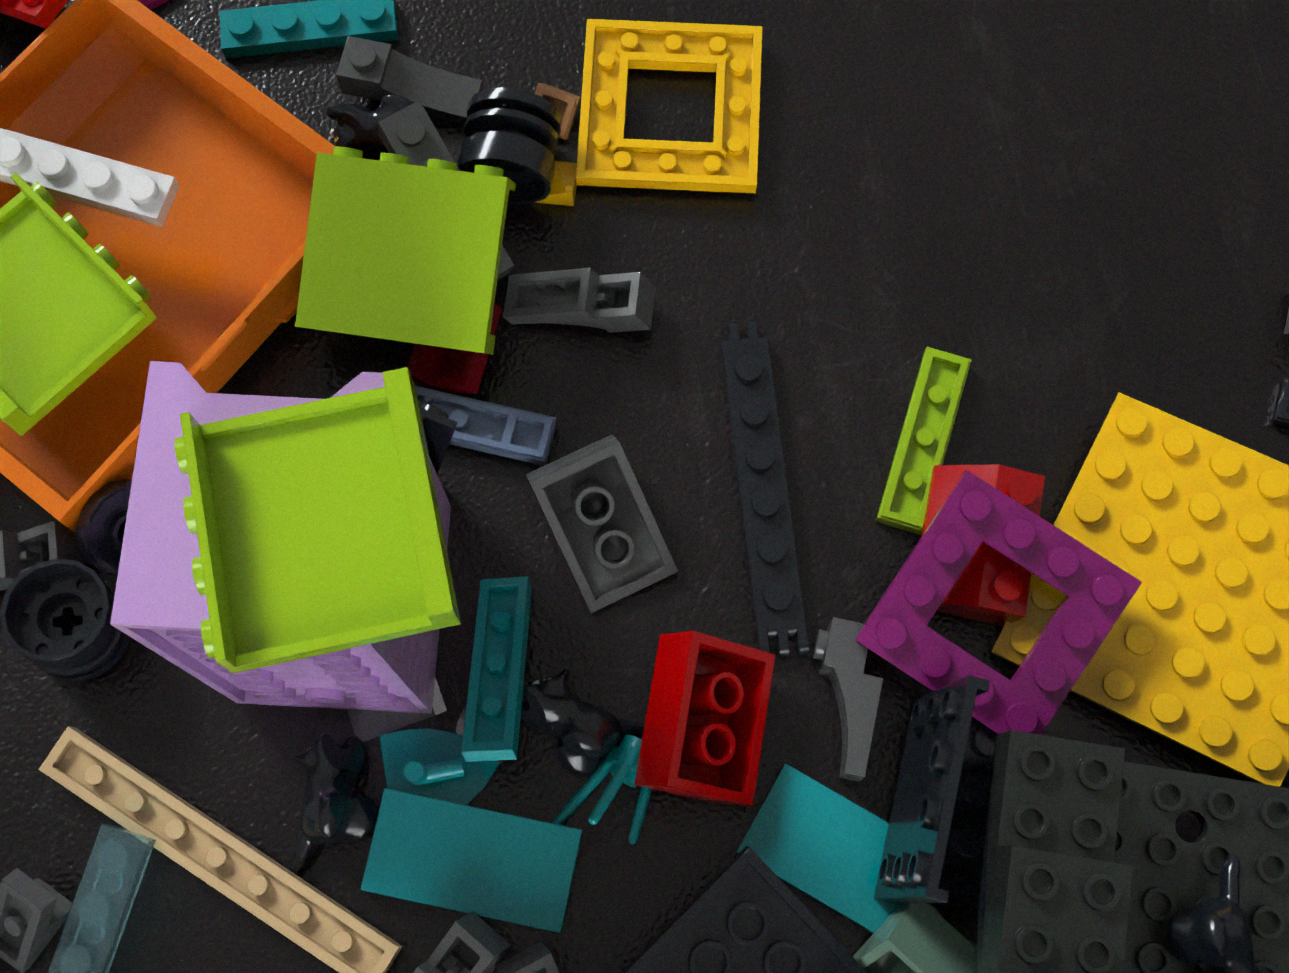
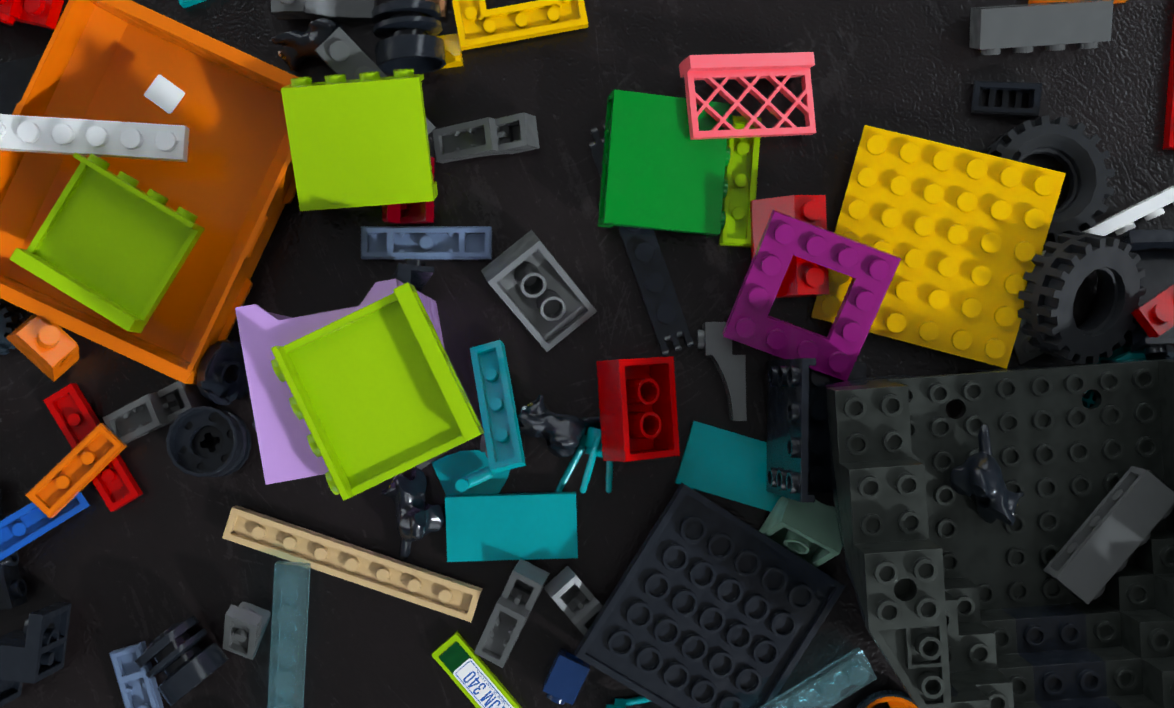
camera: 15 degrees left, 15 degrees up
(162, 139) = (164, 94): none -> white sticker
(822, 385) = (656, 172): none -> green panel
(961, 282) = (744, 67): none -> coral fence

